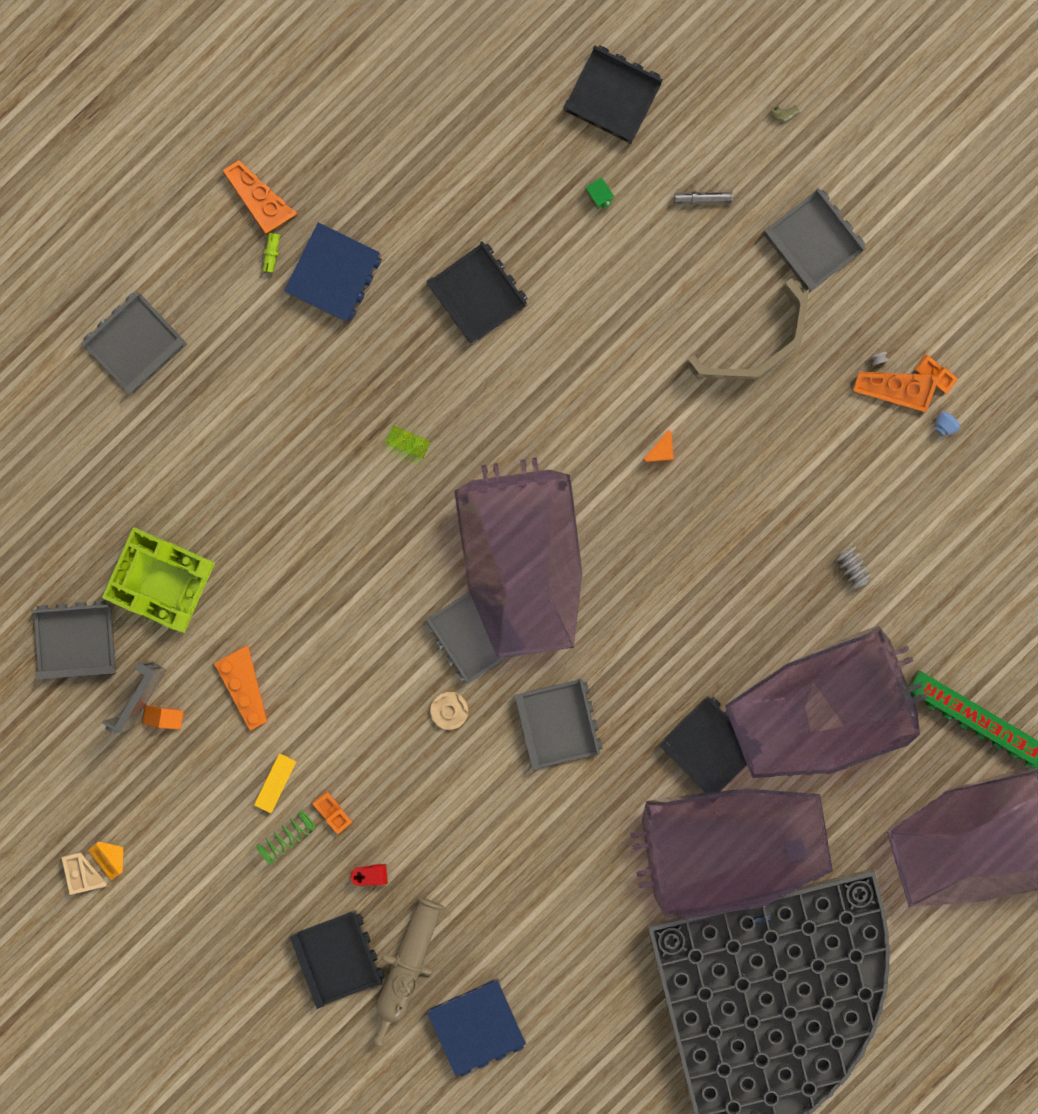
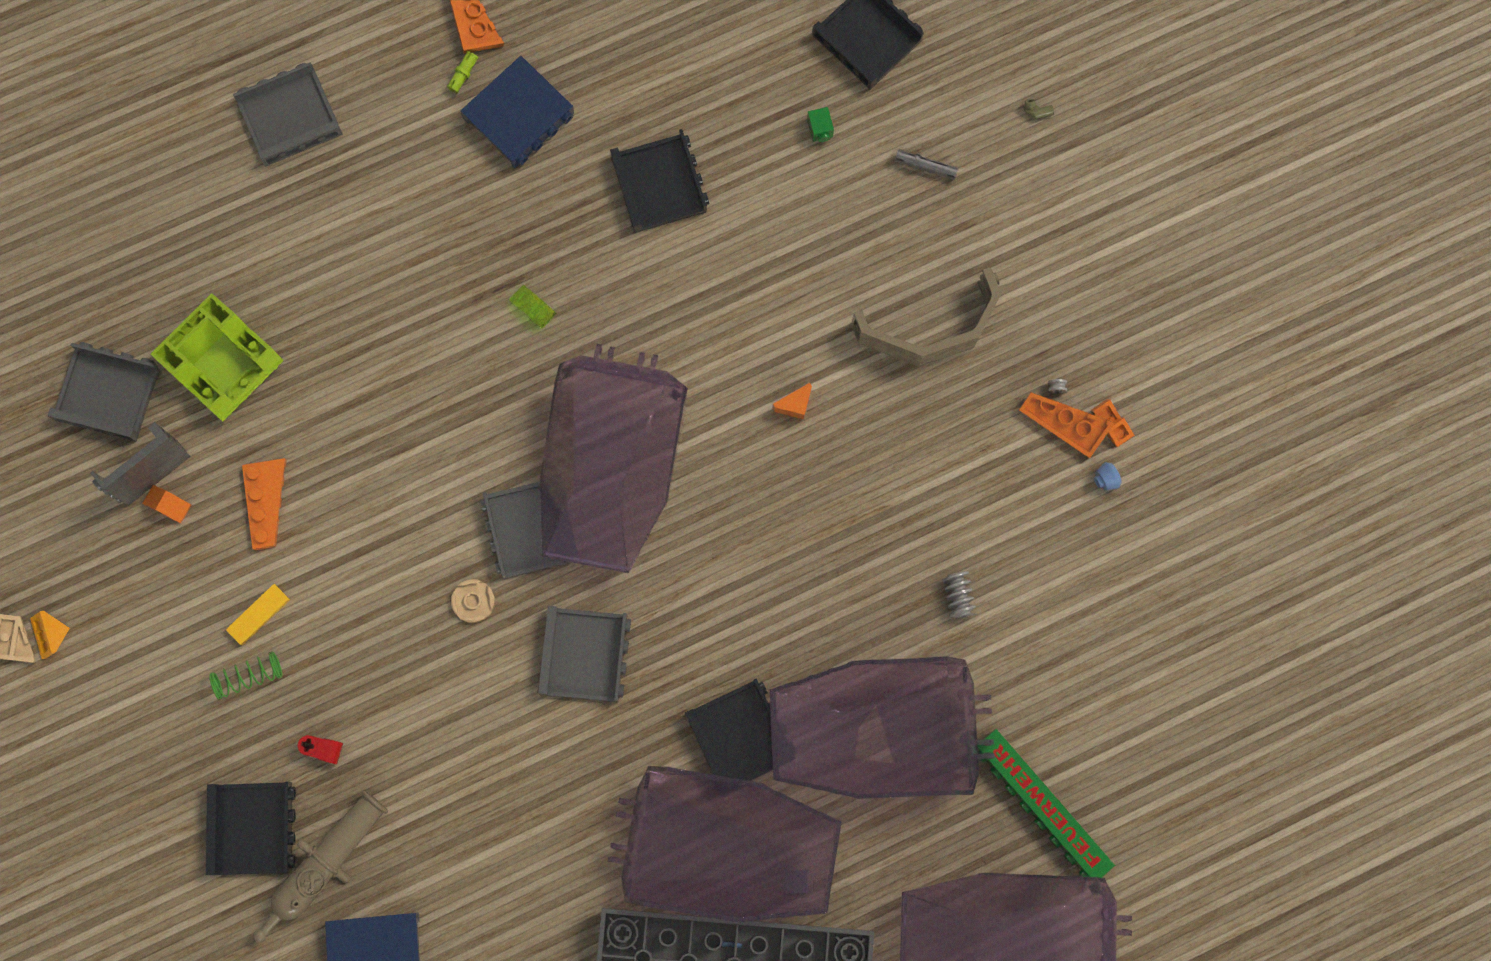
camera: 20 degrees right, 10 degrees down
(332, 812) = (306, 666): orange slope -> none
(814, 240) = (1028, 244): dark grey panel -> none

